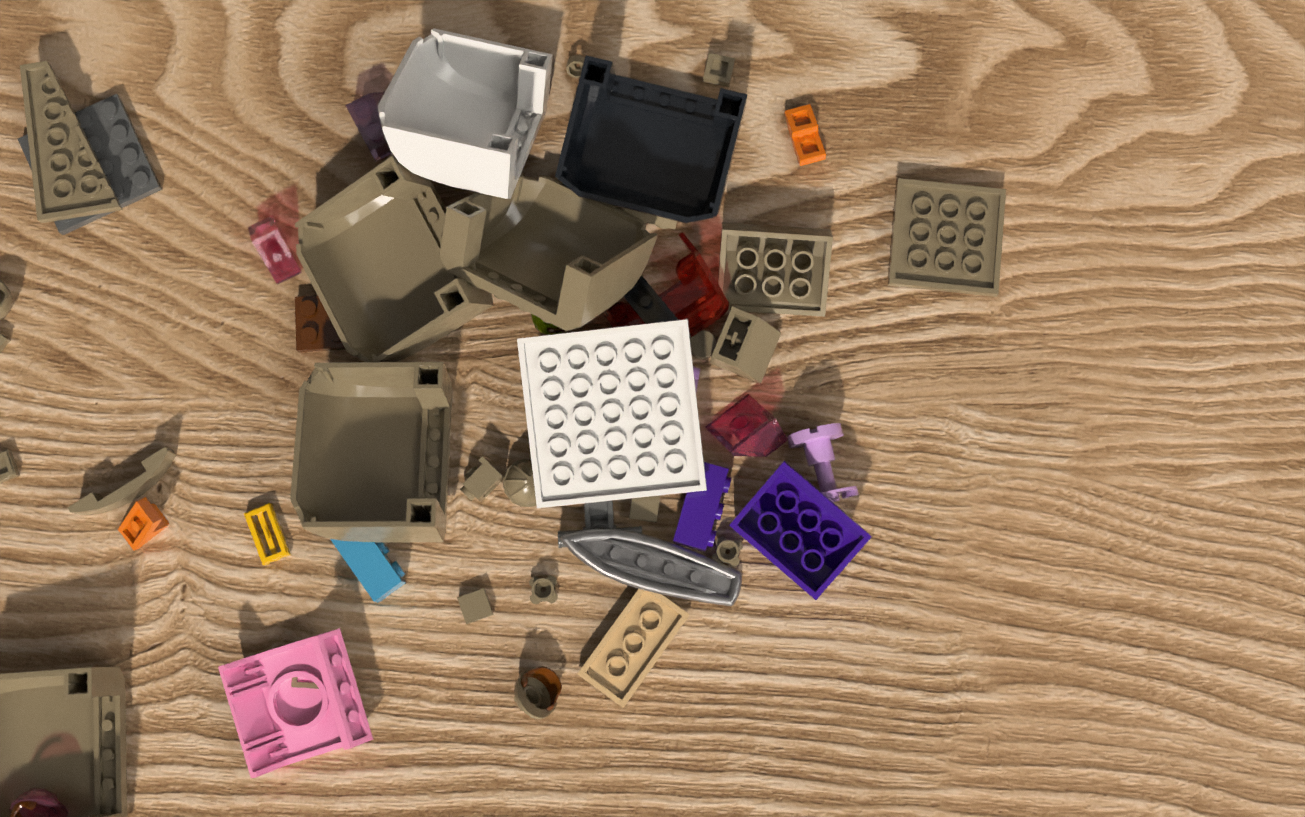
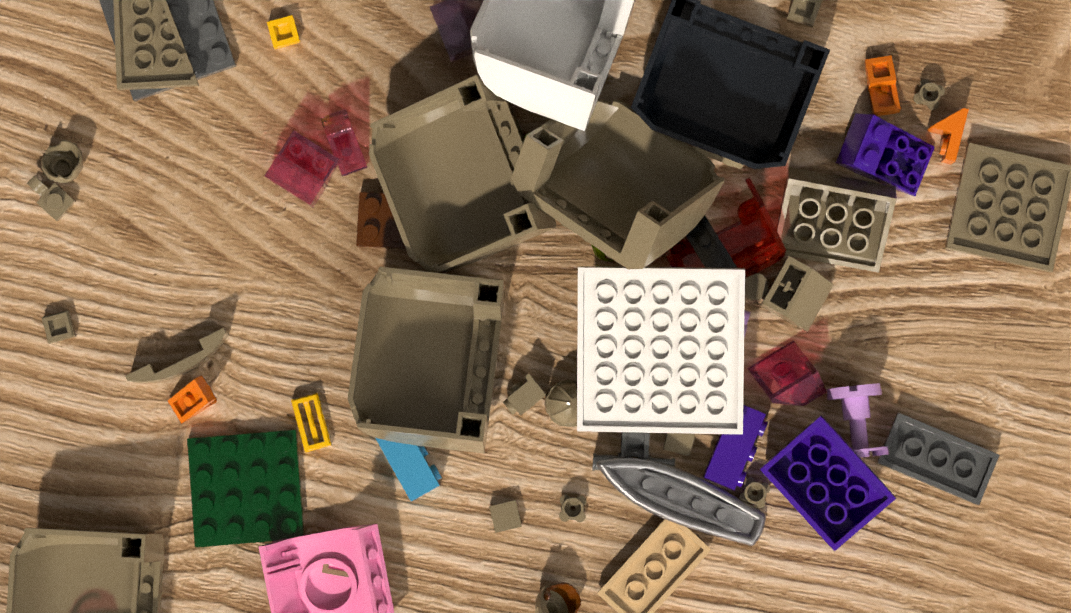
camera: 10 degrees right, 5 degrees up
(204, 609) = (245, 488): none -> dark green plate
(205, 150) = (283, 32): none -> yellow tile
(234, 280) = (302, 169): none -> clear pink slope
(816, 198) = (885, 153): none -> dark purple slope
(852, 130) = (935, 90): none -> dark tan plate
(878, 168) = (953, 129): none -> orange slope
(909, 494) = (938, 459): none -> dark grey plate

